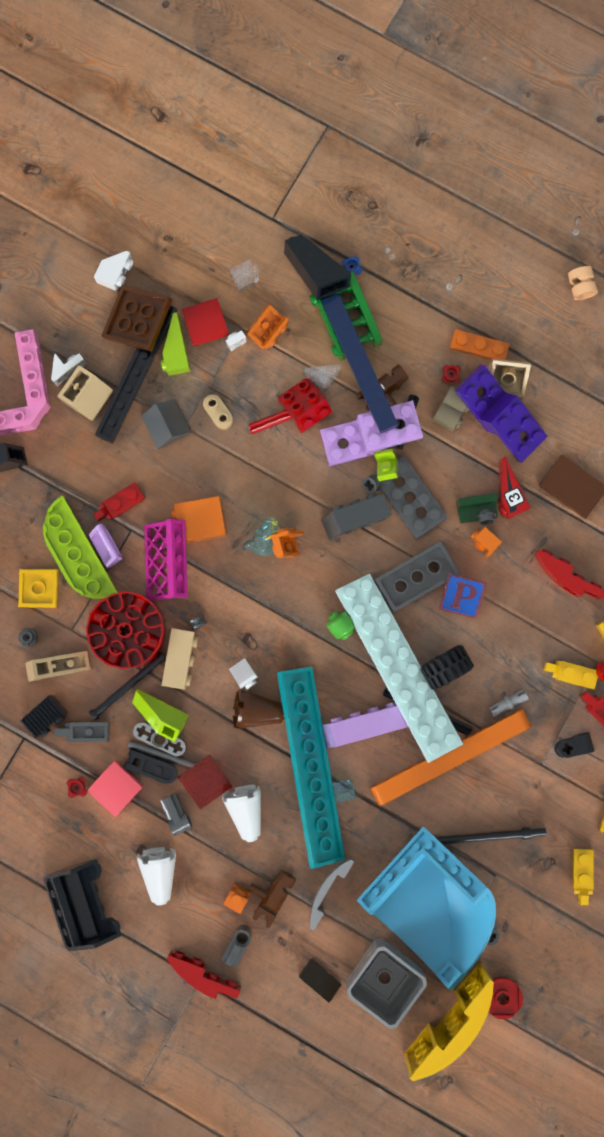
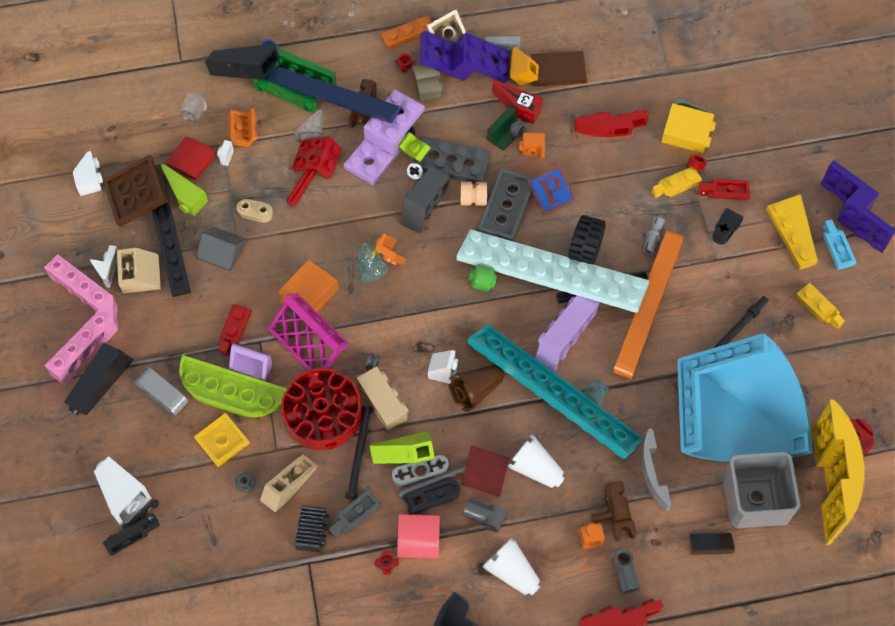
camera: 45 degrees left, 20 degrees down
(24, 511) = (161, 391): none -> light grey beam
(398, 545) = (473, 193): none -> light nougat wheel
(542, 463) = (523, 68): none -> light orange slope
(547, 426) = (505, 42): none -> light grey tile

